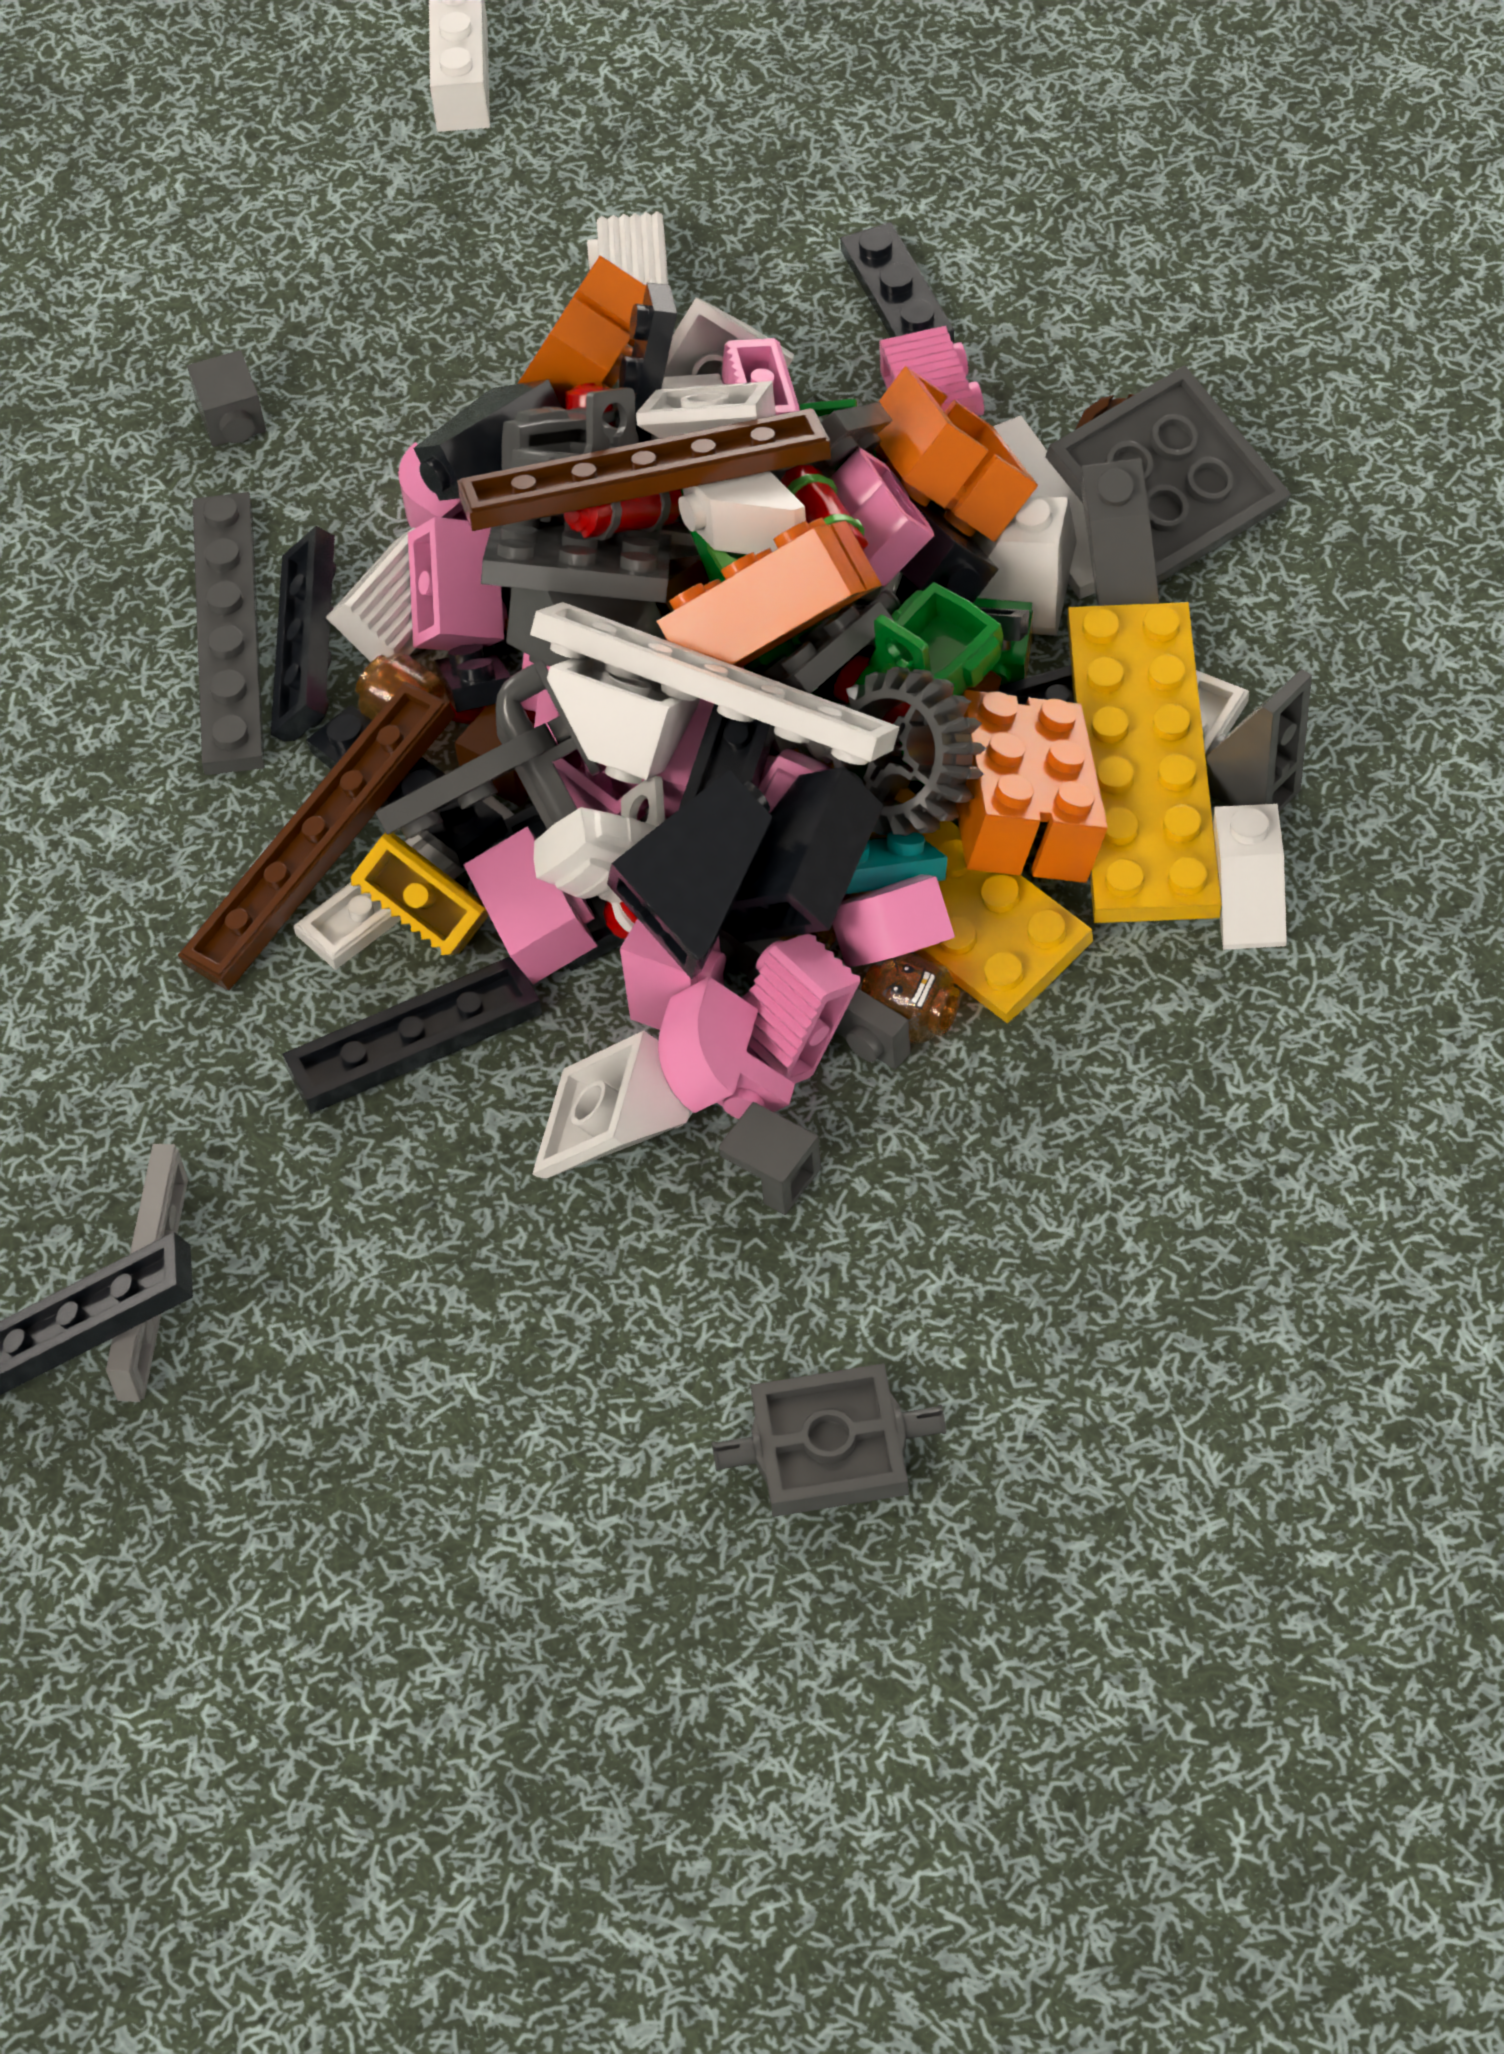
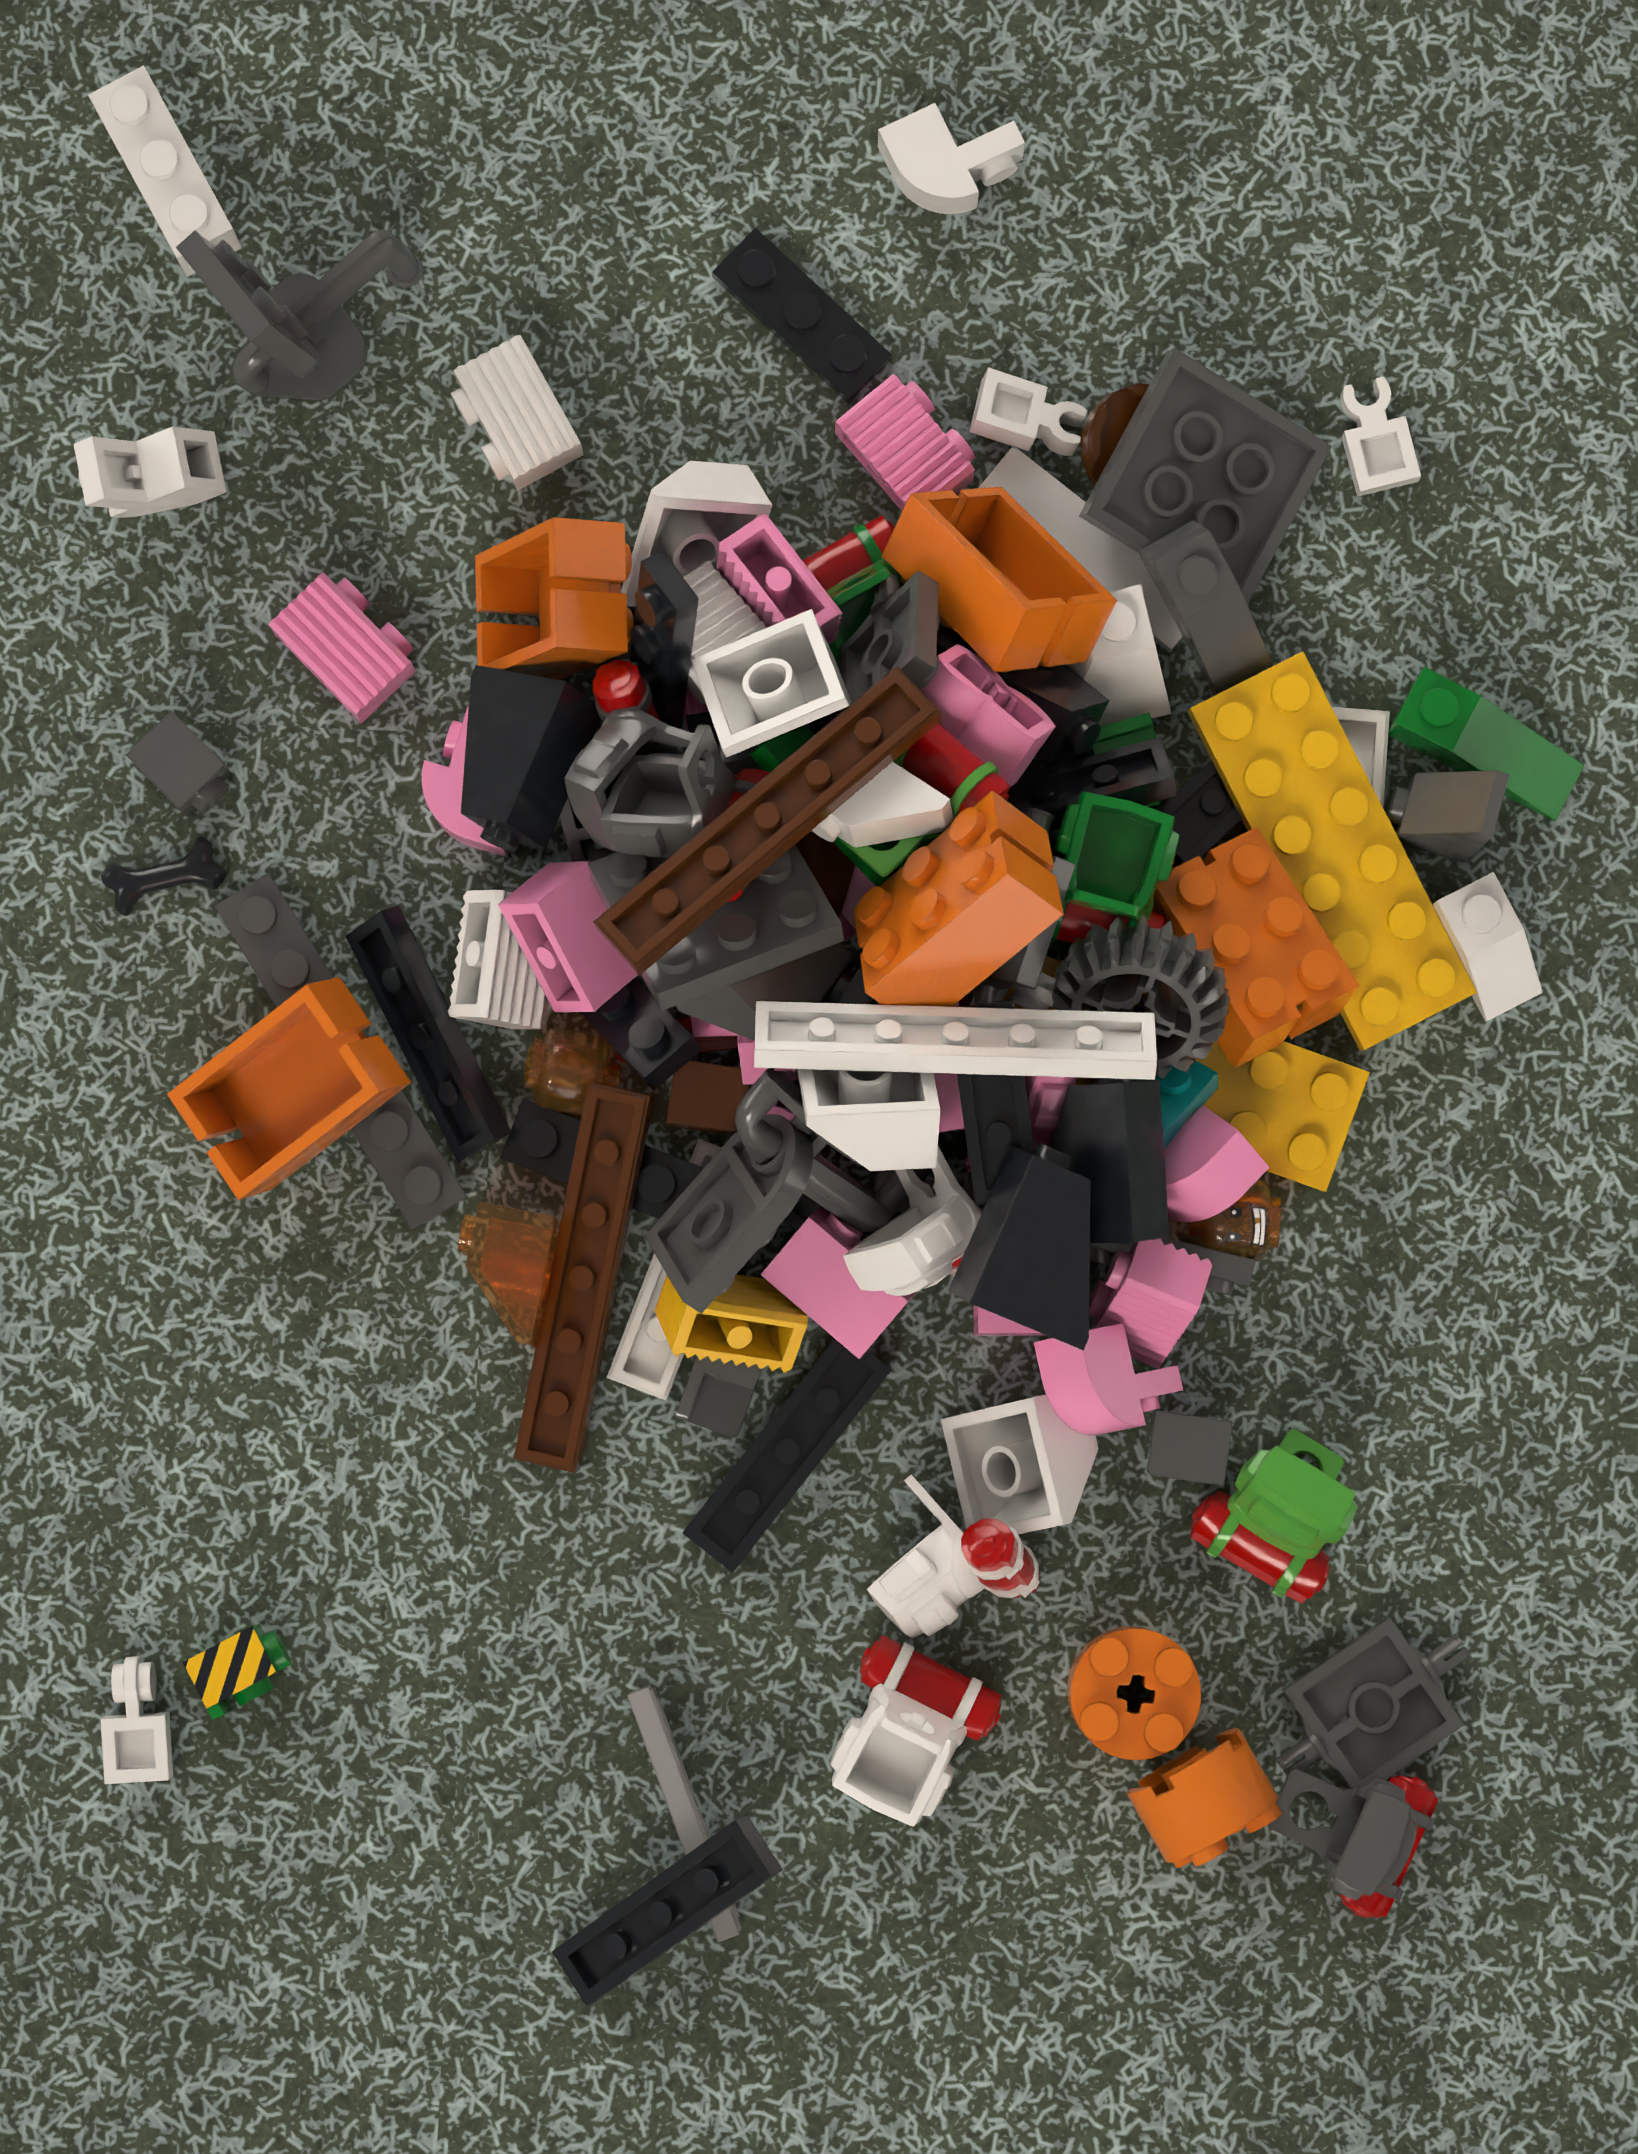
camera: 30 degrees left, 30 degrees up
(162, 606) = (289, 1087): none -> orange piece
(195, 476) = (193, 868): none -> black piece
(263, 782) = (512, 1263): none -> clear orange slope
(325, 223) = (150, 474): none -> white brick
(380, 963) = (718, 1395): none -> dark grey panel
(384, 1281) = (912, 1725): none -> white piece
(404, 368) = (344, 646): none -> bright pink brick
(498, 1159) = (949, 1568): none -> white piece
(499, 166) = (298, 331): none -> dark grey plate
(607, 1328) = (1155, 1723): none -> orange brick
(621, 1430) = (1205, 1798): none -> orange brick
(759, 1526) = (1370, 1836): none -> dark grey piece
(822, 1231) = (1280, 1517): none -> bright green piece
(1036, 394) = (1016, 414): none -> white plate
(1061, 230) = (938, 172): none -> white brick
(1333, 508) = (1379, 449): none -> white plate
(1337, 746) = (1478, 736): none -> green slope

